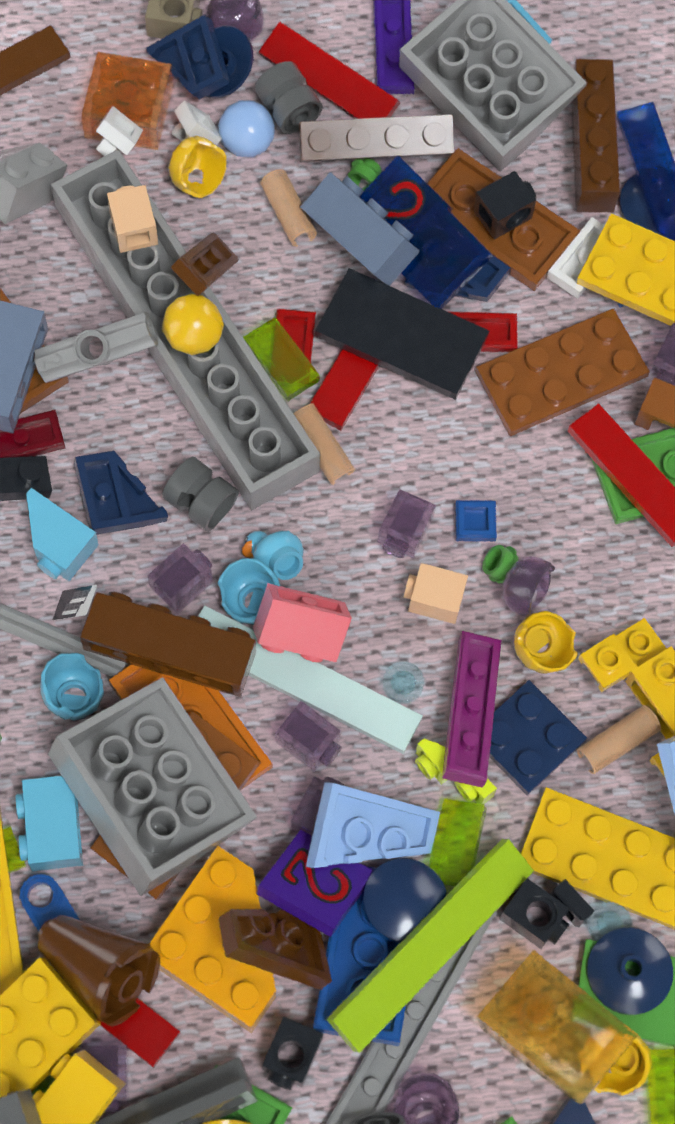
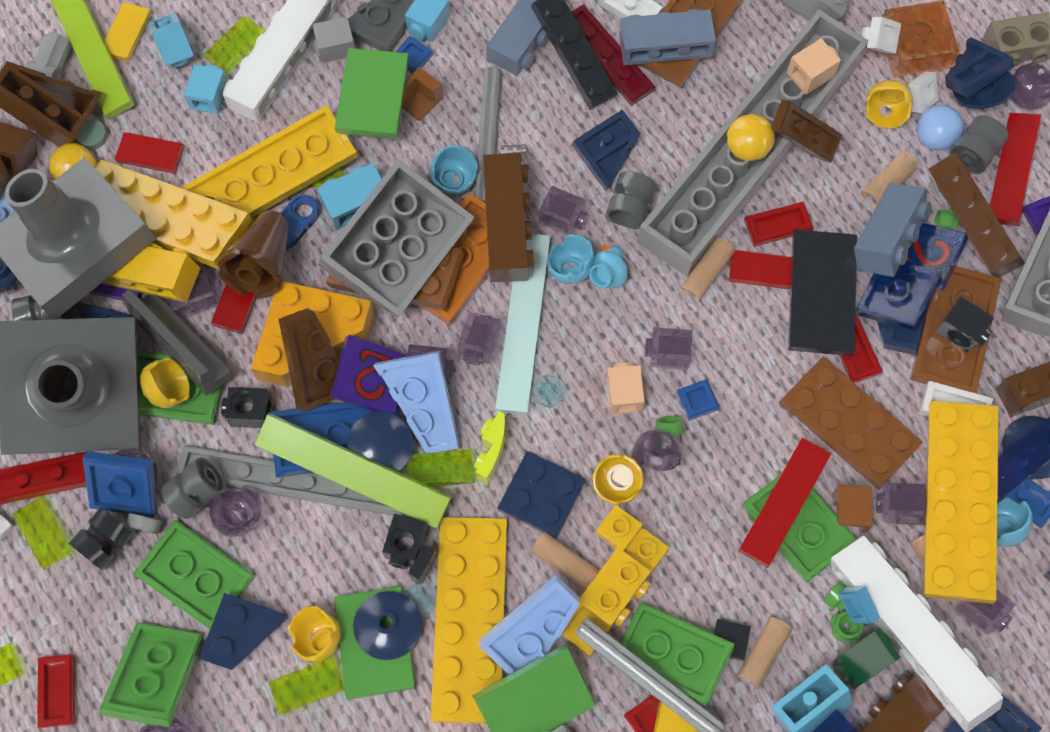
camera: 75 degrees right, 0 degrees up
(58, 538) = (558, 122): medium azure slope -> none
(118, 341) = (705, 85): light grey piece -> none
(282, 359) = (762, 216): clear neon green tile -> none
(301, 623) = (558, 299): coral brick -> none
(472, 709) = (542, 441): magenta tile -> none
(555, 1028) = (319, 576): clear yellow slope -> none

